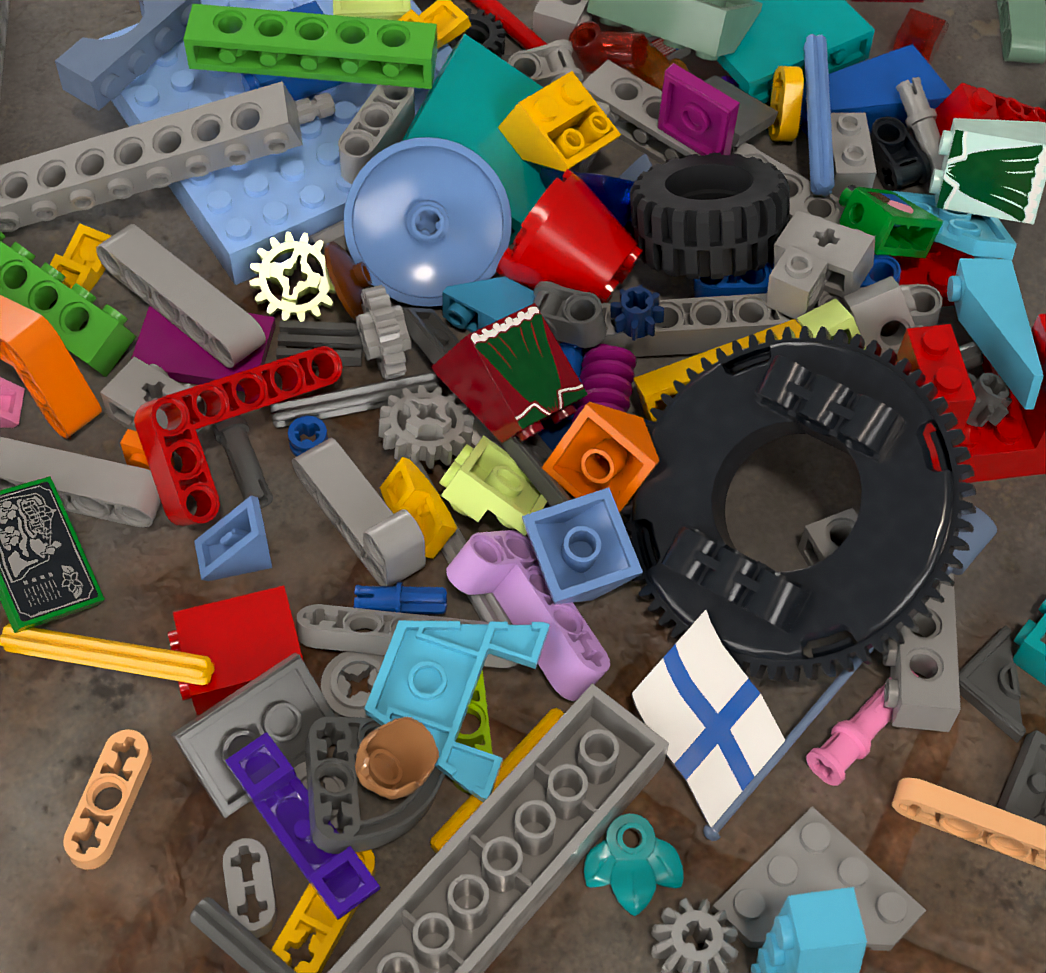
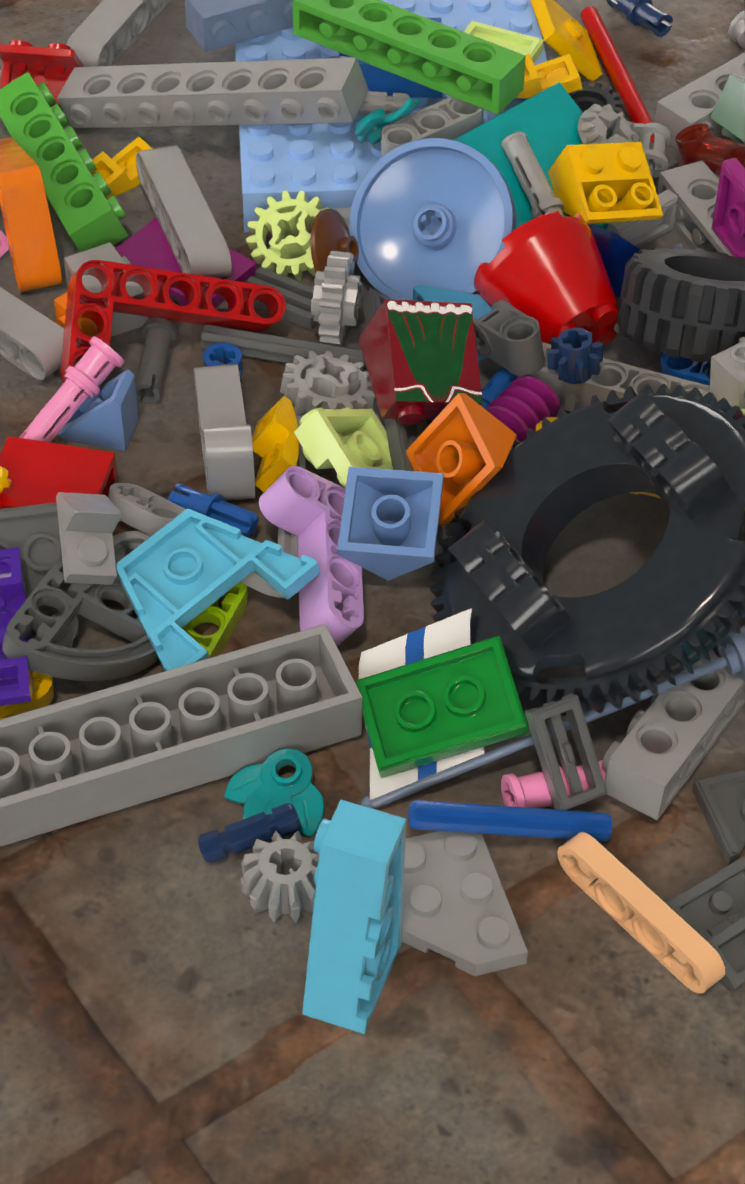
camera: 30 degrees right, 10 degrees down
(208, 526) = (80, 383): none -> bright pink pin
(322, 136) = (371, 126): none -> teal plate
(323, 689) = (87, 537): none -> light grey slope
(396, 758) = (108, 605): medium nougat hair -> none
(503, 151) = (531, 175): none -> light grey pin
(519, 73) = (594, 124): none -> light grey gear
(637, 915) = (243, 833): none -> dark blue axle
(734, 716) = (441, 707): none -> green tile
(842, 796) = (507, 820): none -> blue axle
(859, 721) = (546, 754): none -> dark grey tile

